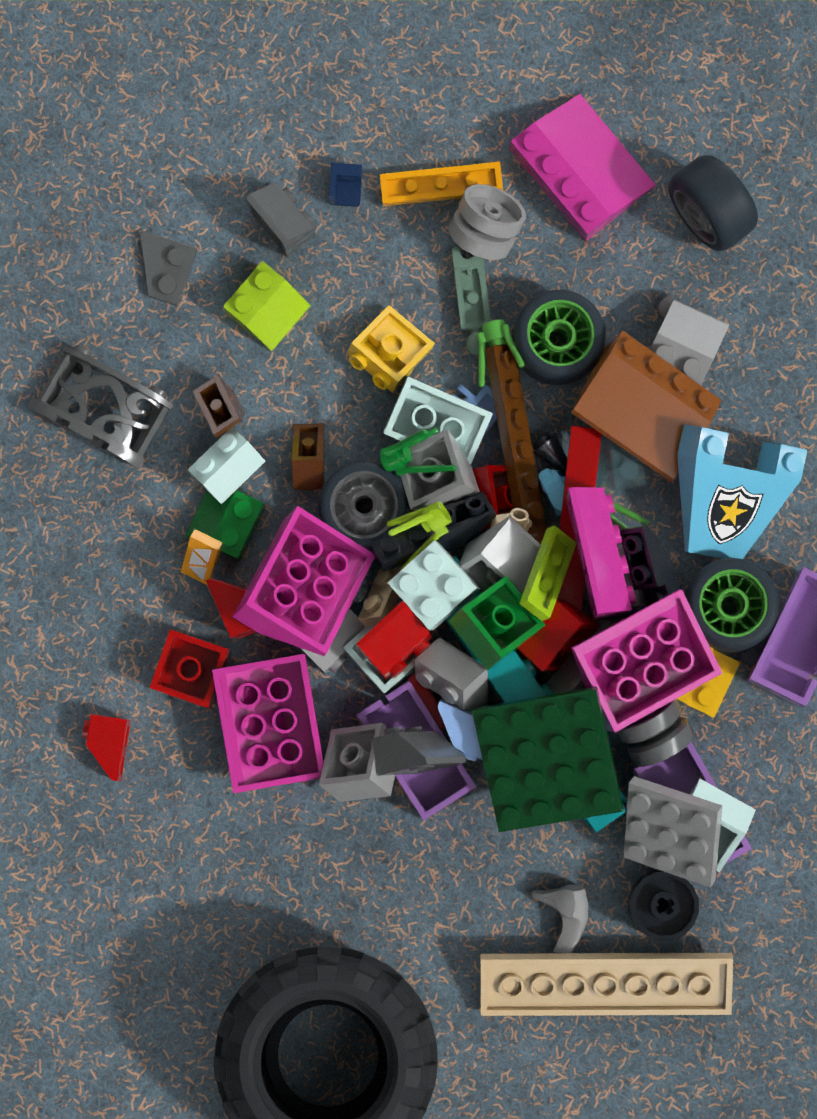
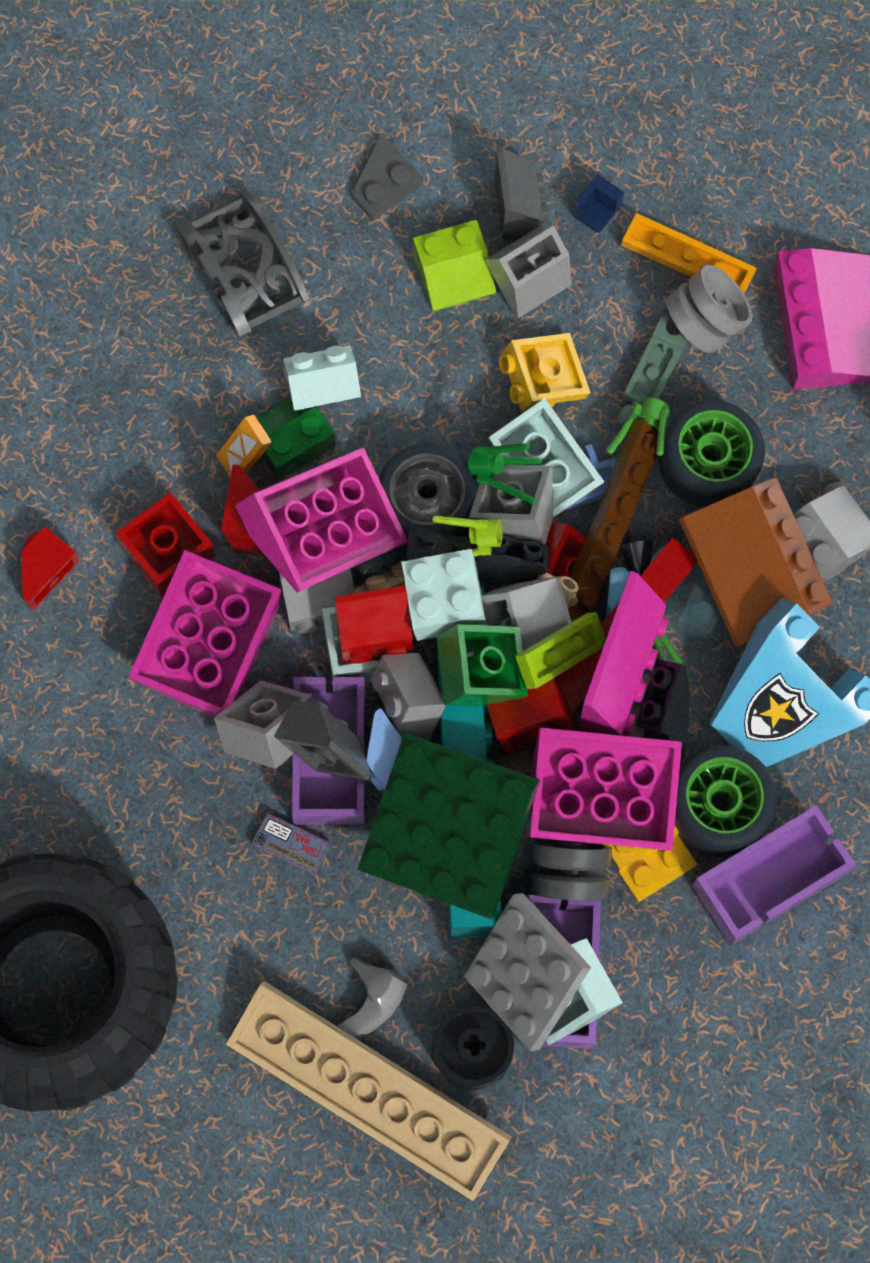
camera: 20 degrees right, 10 degrees down
(219, 405) = (351, 322): reddish brown slope -> none
(308, 456) = (403, 421): reddish brown slope -> none
(328, 273) = (531, 269): none -> light grey slope
(428, 700) = (371, 707): red tile -> none
(431, 836) = (291, 844): none -> tile

